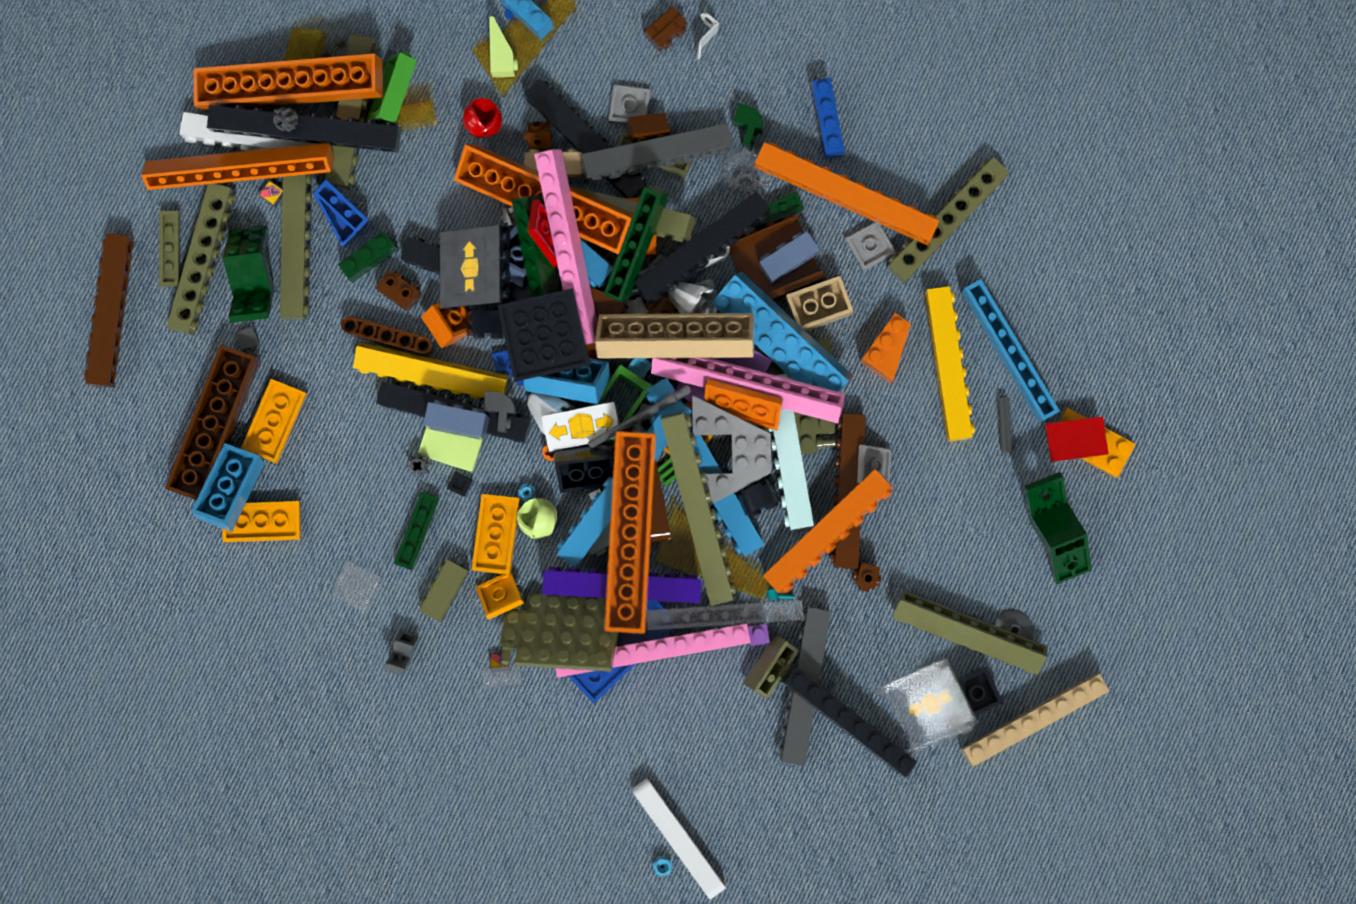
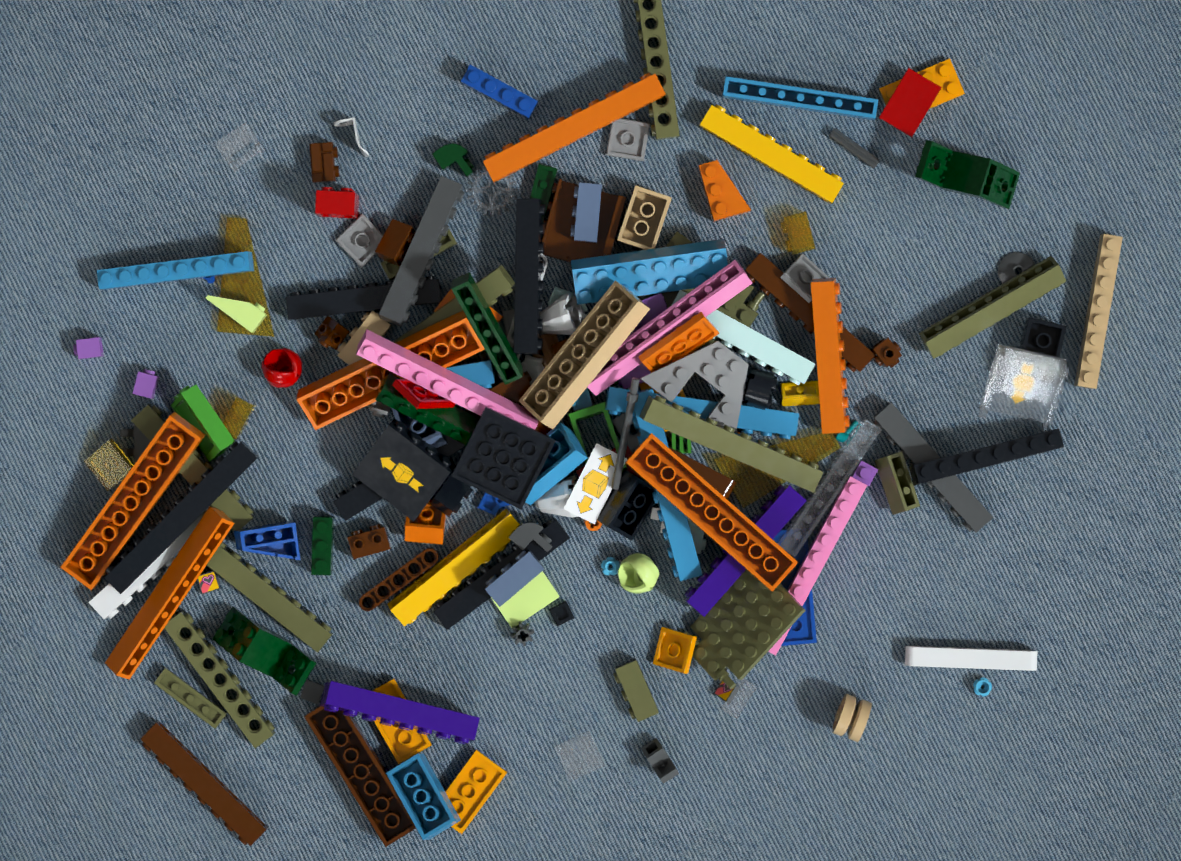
camera: 50 degrees left, 5 degrees up
(280, 414) = (399, 711): none -> dark purple brick
(285, 119) = (167, 526): dark grey gear -> none
(388, 27) = (146, 384): none -> medium lavender brick
(416, 531) = (572, 675): dark green plate -> none
(496, 534) = (624, 616): light orange plate -> none
(555, 779) = (851, 717): none -> tan wheel
(642, 59) = (337, 203): none -> red brick
(779, 534) = (800, 395): none -> yellow slope
(904, 433) = (798, 233): none -> clear yellow brick

